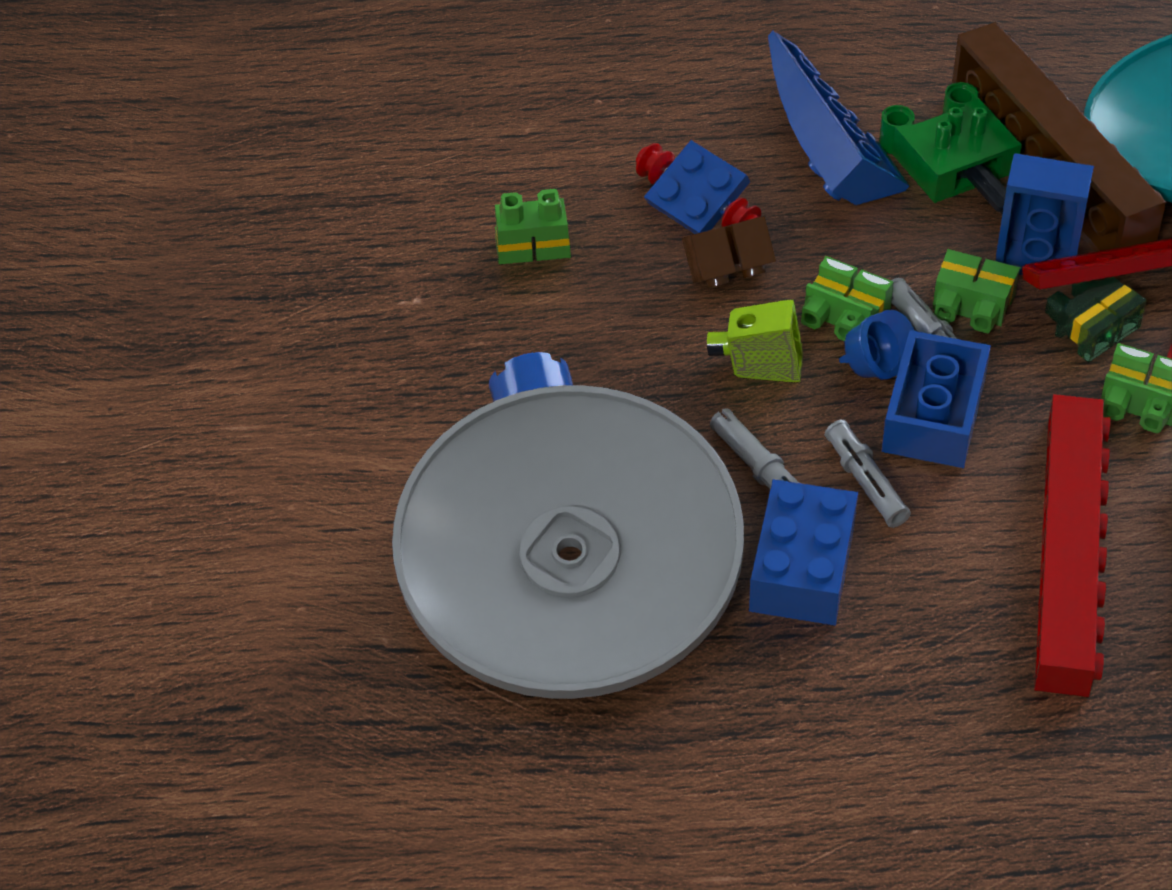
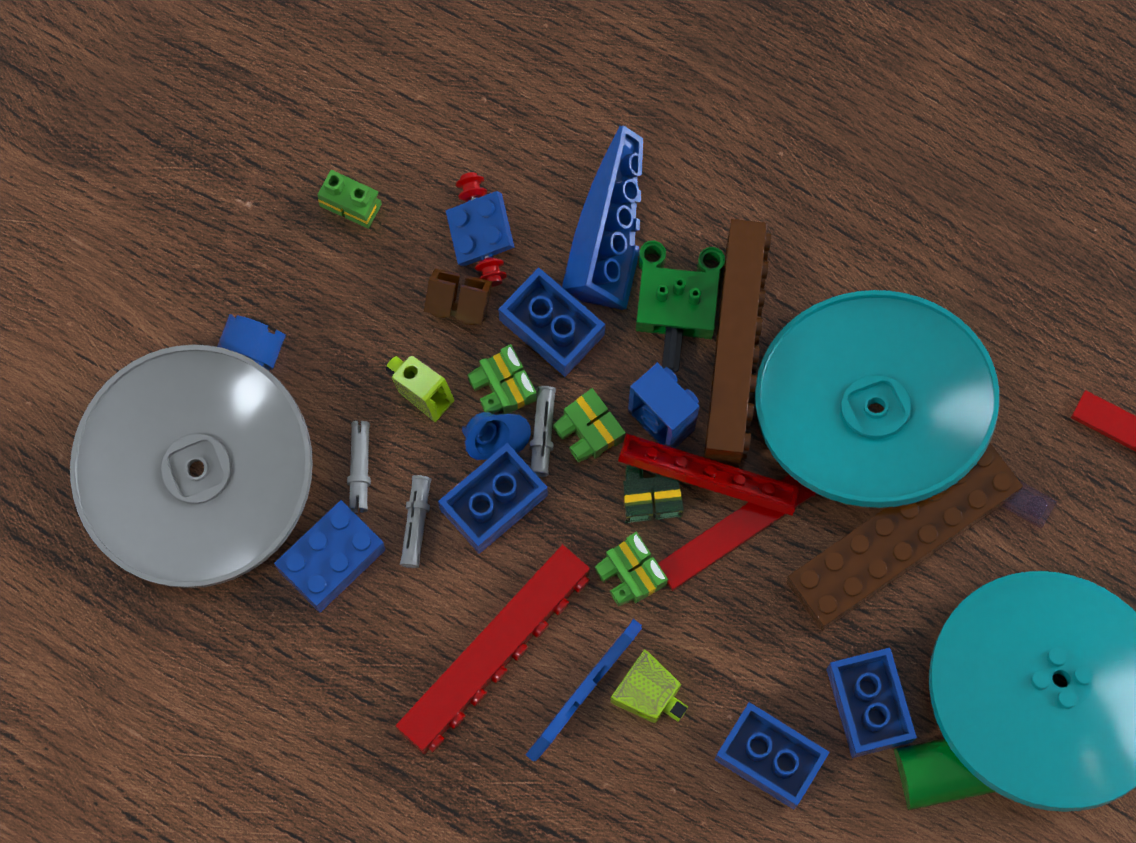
camera: 30 degrees right, 25 degrees up
(849, 221) = (551, 322): none -> blue brick

